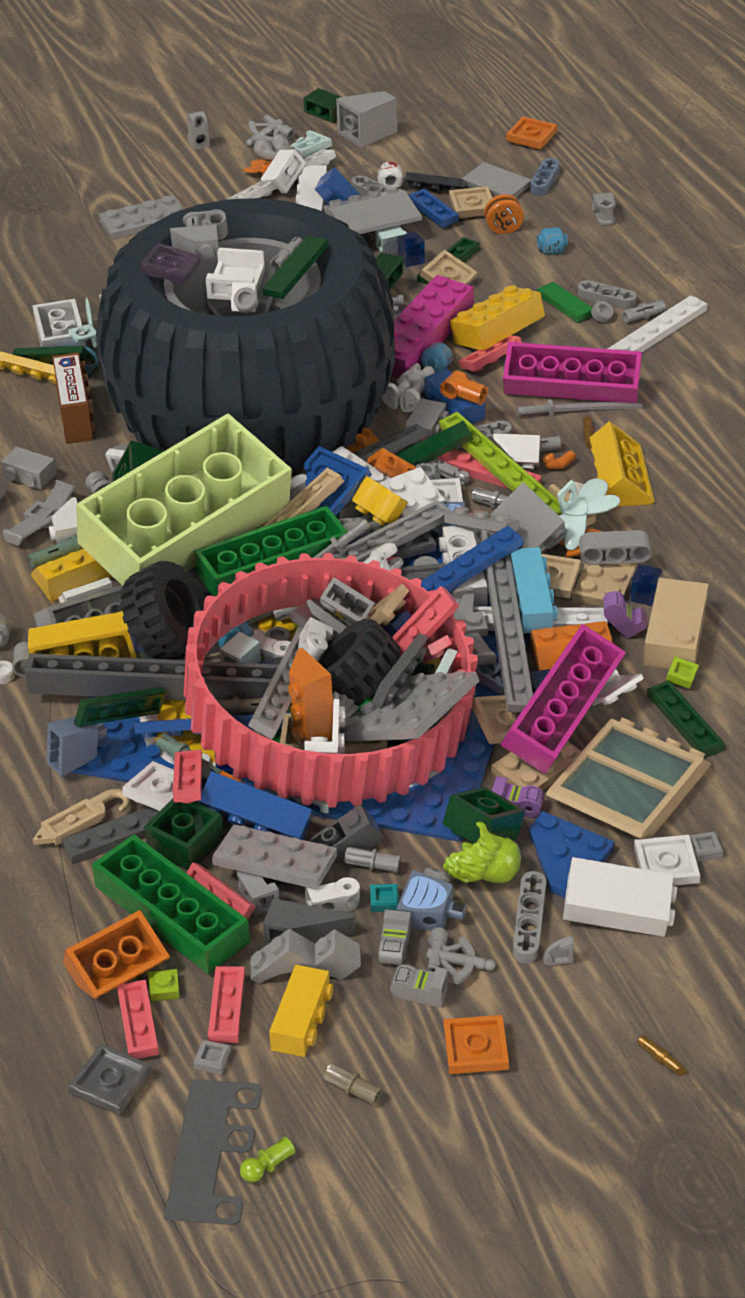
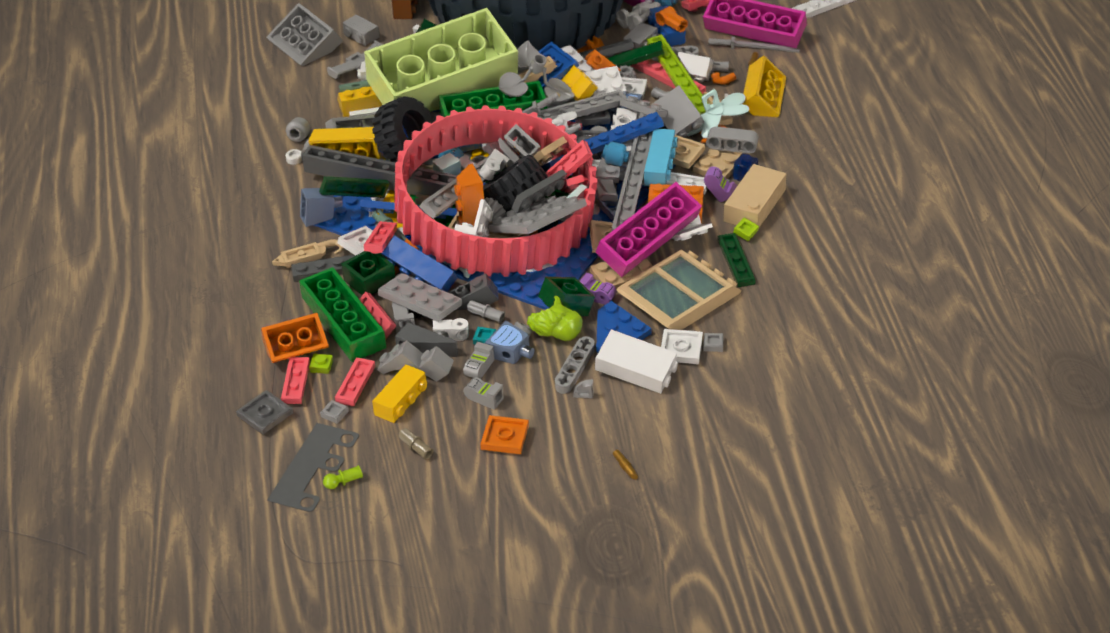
camera: 15 degrees right, 0 degrees up
(297, 520) = (528, 56): none -> light grey plant
(443, 955) = (506, 376): light grey piece -> none
(450, 471) = (644, 74): light grey axle -> none
(472, 595) = (615, 153): none -> dark azure head

